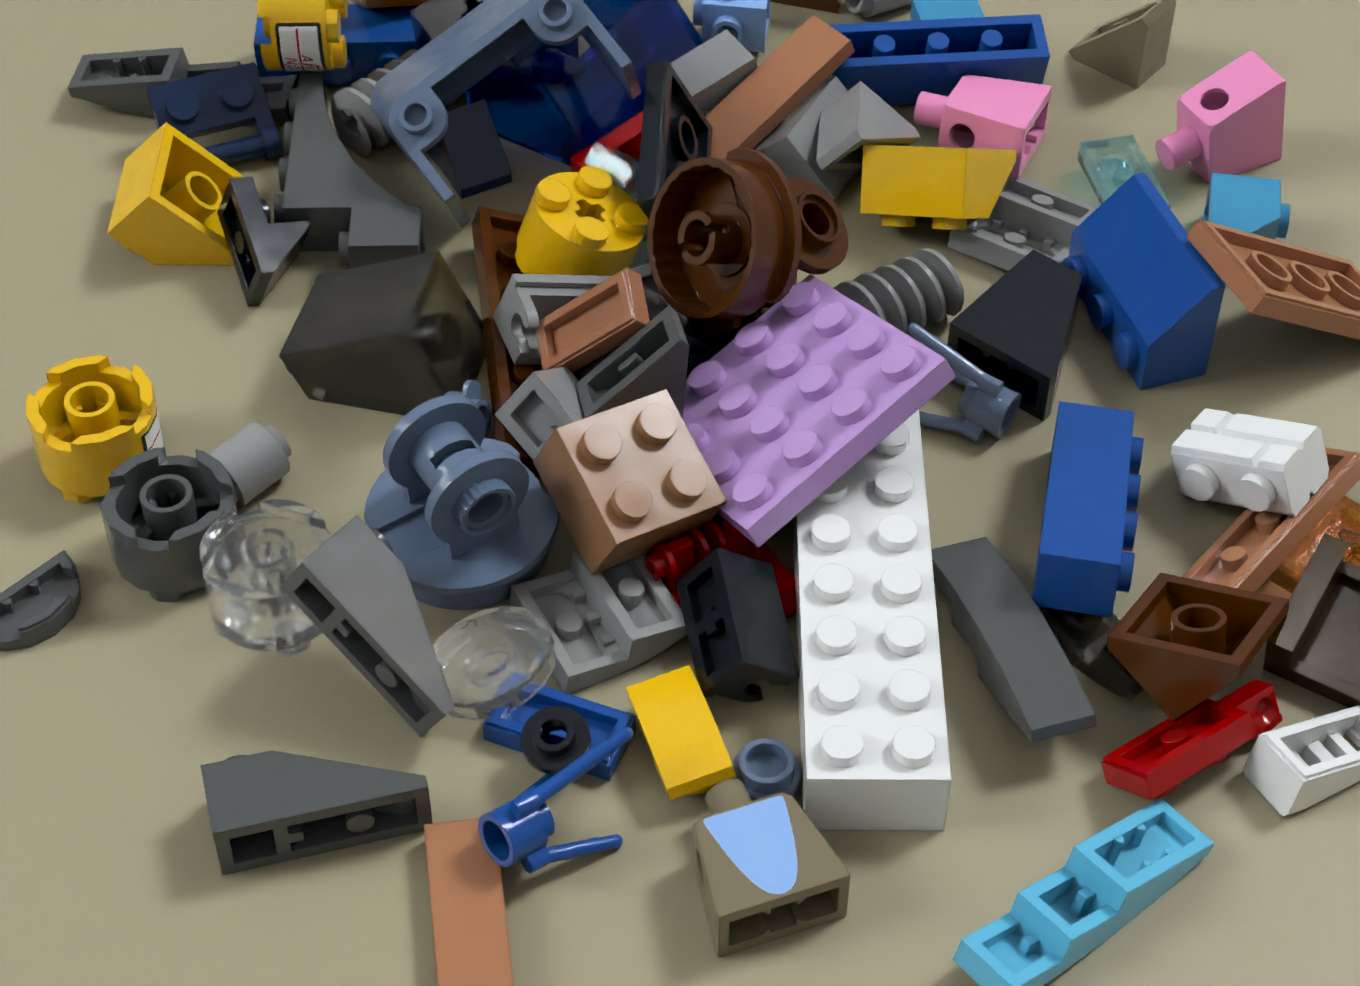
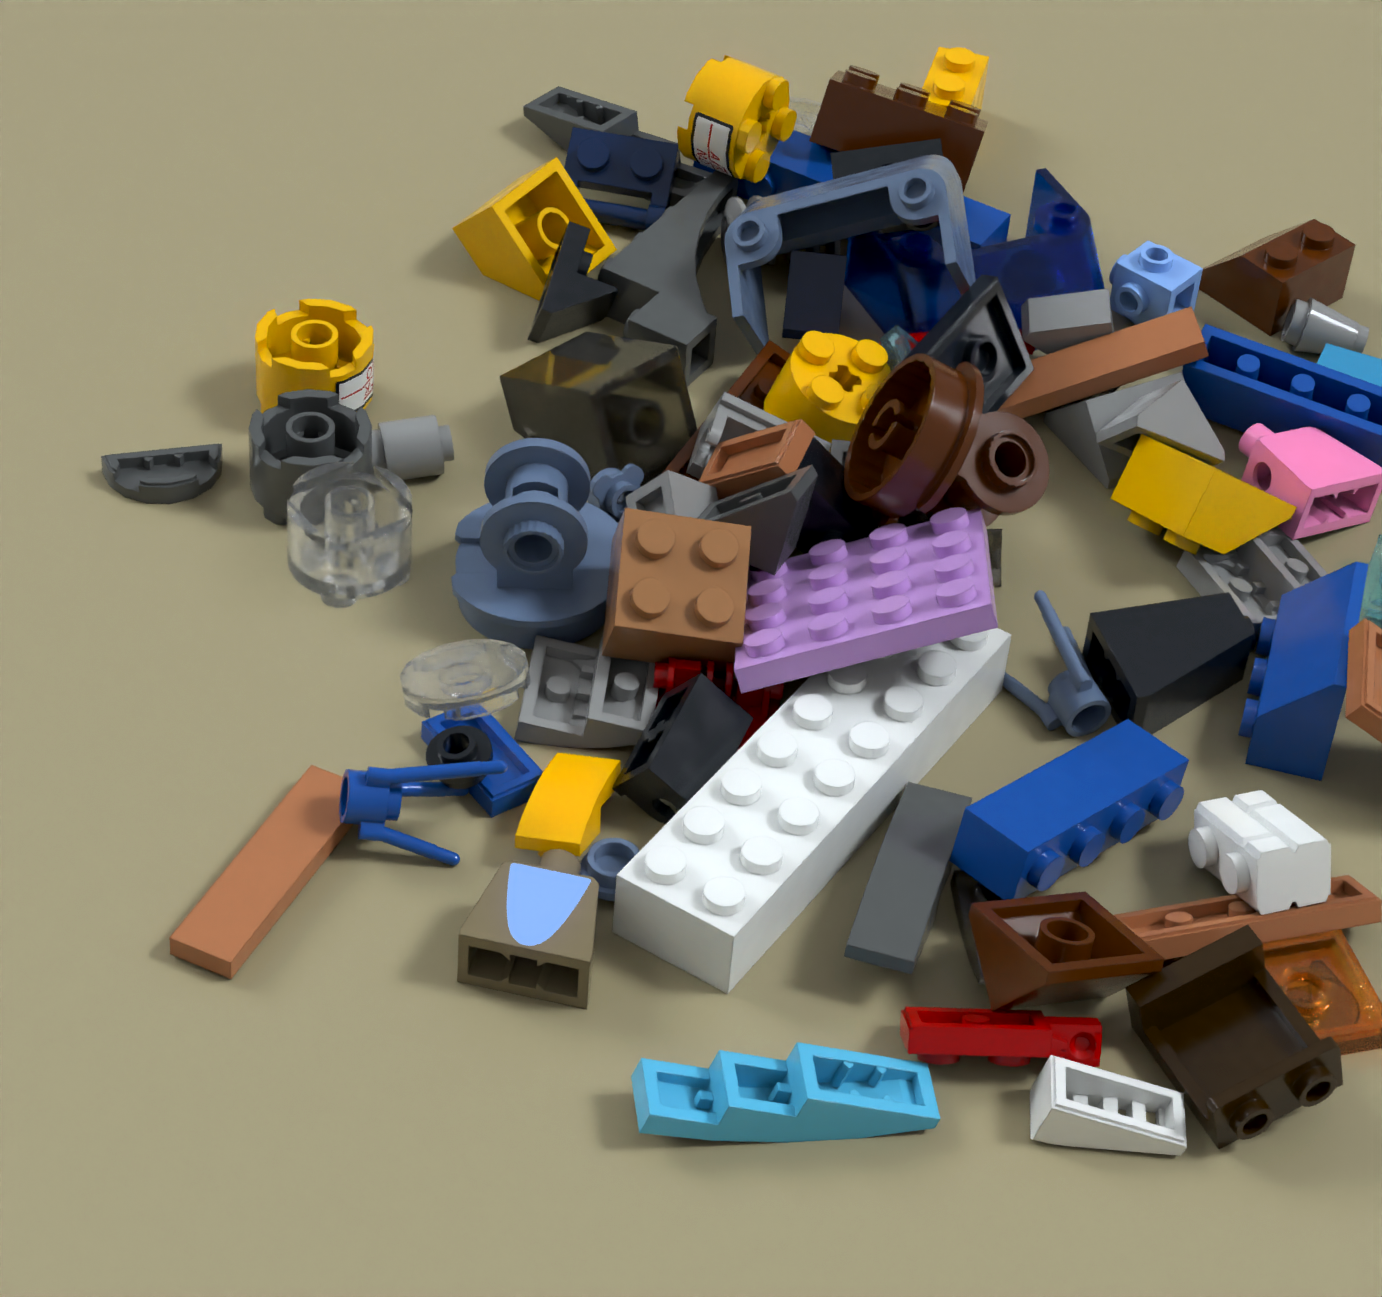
camera: 30 degrees right, 5 degrees down
(300, 806) = (230, 703): dark grey slope -> none
(370, 613) = (384, 569): slope -> none
(909, 290) = (1069, 576): light grey piece -> none

